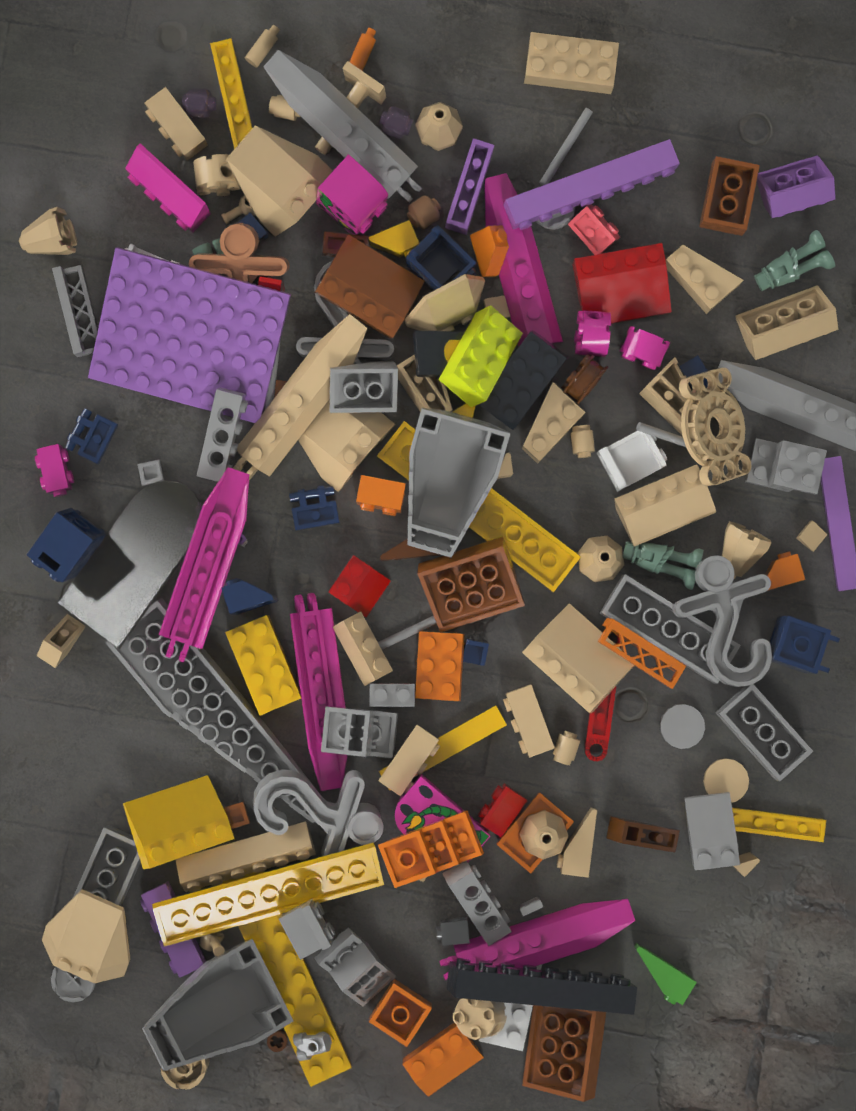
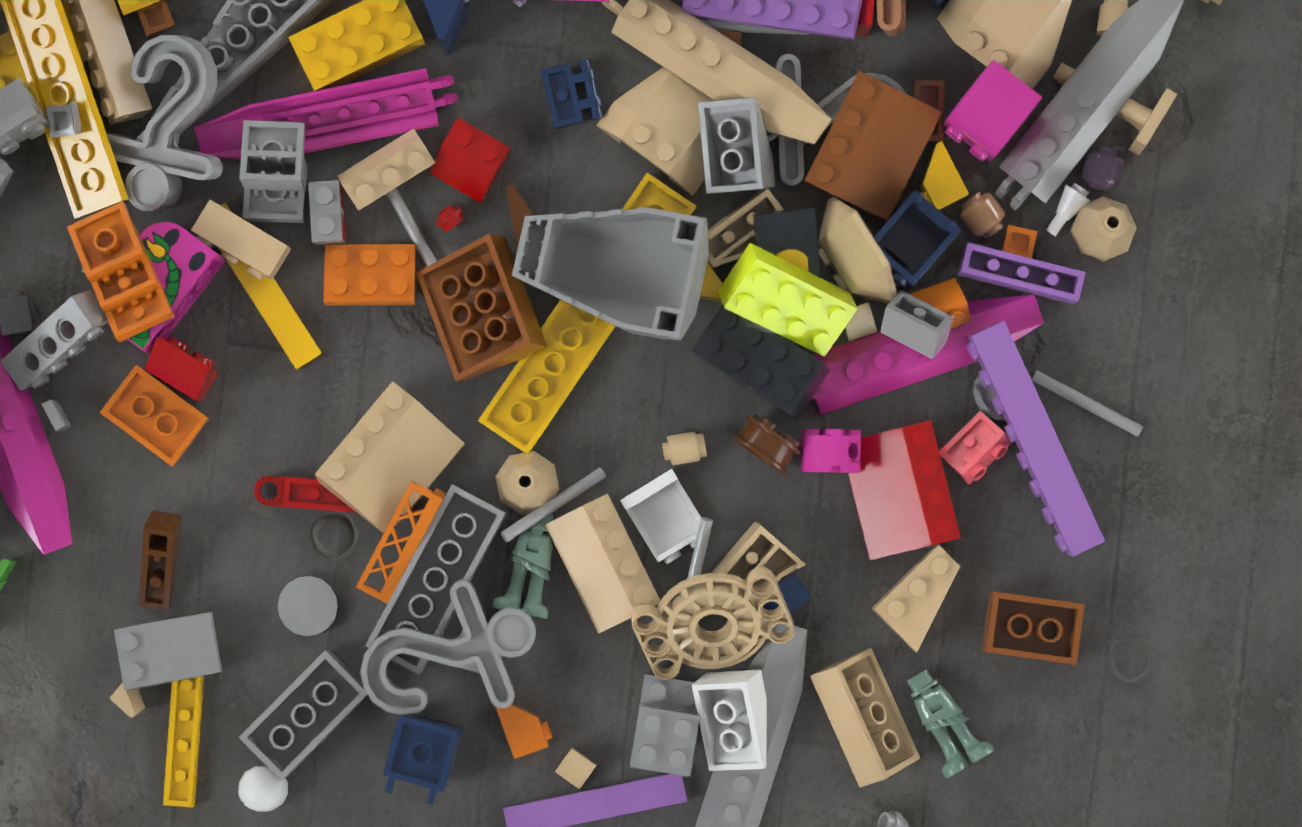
camera: 90 degrees right, 0 degrees up
(311, 887) = (64, 120): none -> light grey tile
(363, 49) = (1198, 118): orange cylinder -> none
(380, 495) = (593, 178): orange brick -> none
(401, 604) = (449, 217): none -> red plate
(419, 148) = (1071, 202): none -> white cone
(445, 187) = (1019, 241): none -> orange plate
(475, 652) = (391, 321): dark blue panel -> none
(504, 263) = (916, 324): none -> light grey brick
(506, 467) = (641, 346): tan slope -> none
(528, 721) = (302, 397): tan brick -> none
(539, 825) = (162, 429): tan cone -> none
(553, 421) = (705, 404): tan wedge -> none
(566, 748) = (269, 450): tan brick -> none
(571, 63) = (1202, 401): tan brick -> none
(577, 852) = (132, 473): tan slope -> none
(628, 554) = (553, 504): none -> light grey bar
(644, 347) = (815, 523): dark pink brick -> none
(726, 776) = (243, 669): tan tile -> none
(743, 547) = (552, 672): tan cone -> none
(784, 417) = (732, 719): none -> white slope
(796, 186) = (1053, 719): medium lavender slope -> none
(815, 768) = (262, 789): none -> white hair

